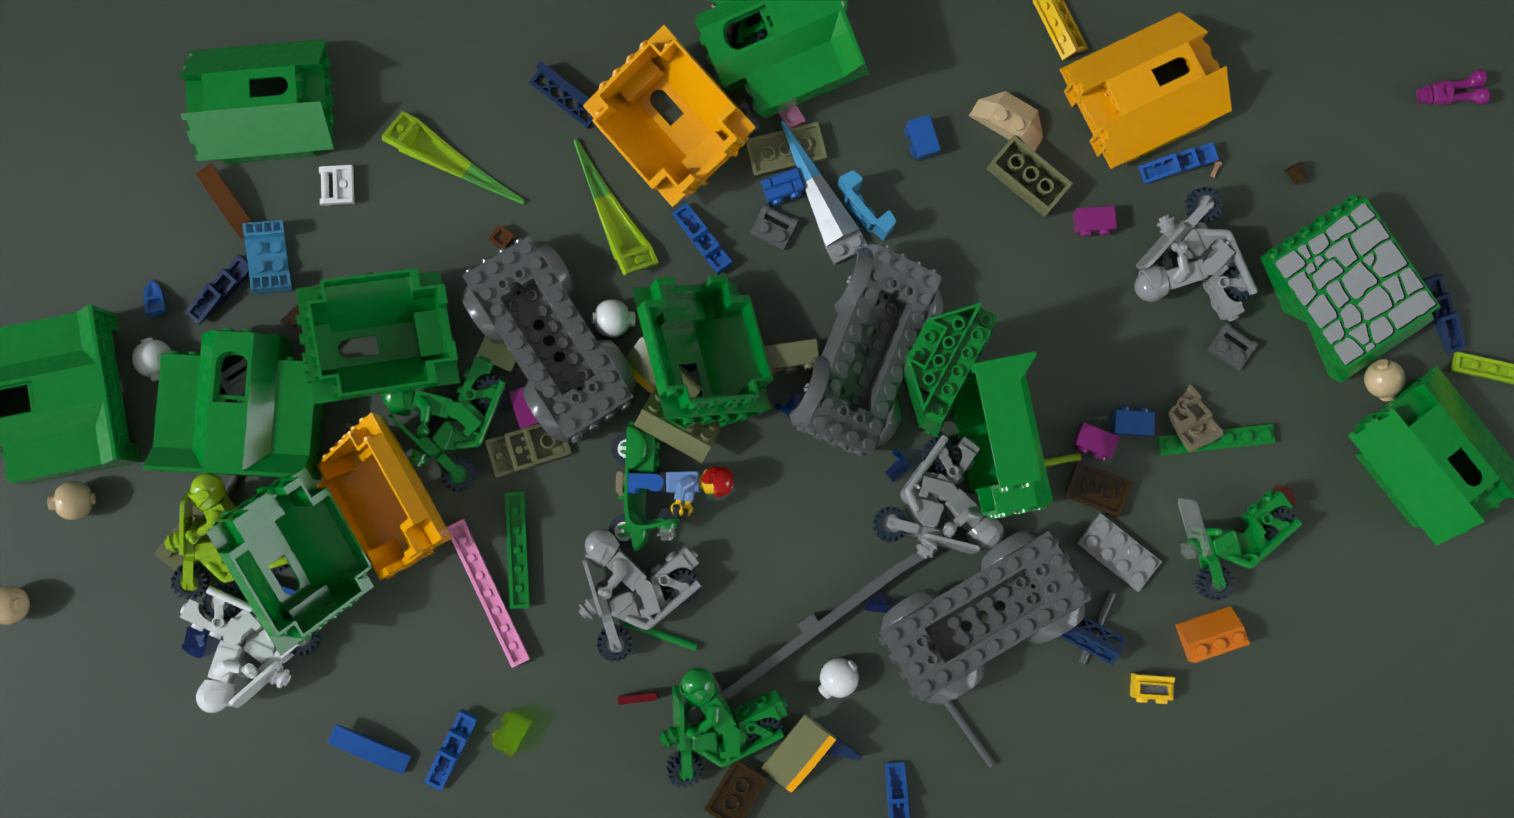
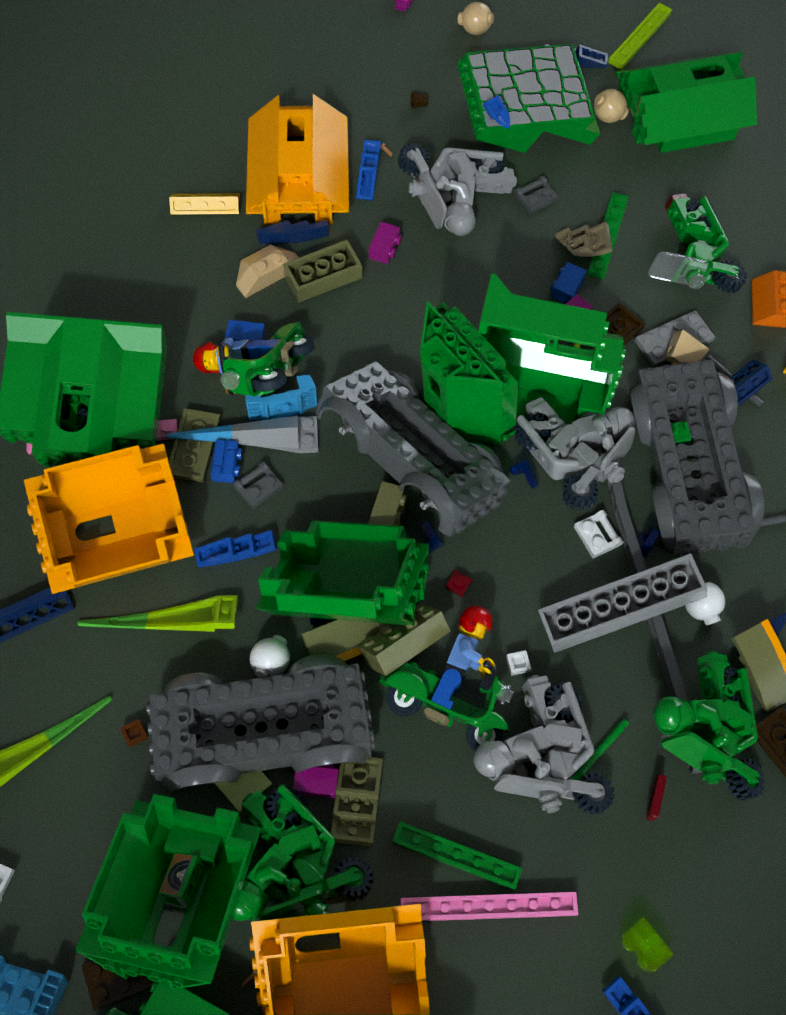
camera: 65 degrees left, 20 degrees down
(397, 339) = (182, 878): none -> panel
(707, 533) = (518, 663): none -> white plate
(759, 450) = (459, 583): none -> dark red plate
(796, 604) = (623, 603): none -> light grey brick
(862, 552) = (592, 536): none -> white plate
(892, 173) = (258, 365): none -> piece
(1001, 594) = (681, 432): none -> green tile
(1059, 118) = (286, 233): none -> dark blue slope
(1099, 567) = (684, 349): none -> tan torso
(1296, 266) = (497, 111): none -> blue plate
(1442, 184) = (476, 18): none -> tan brick

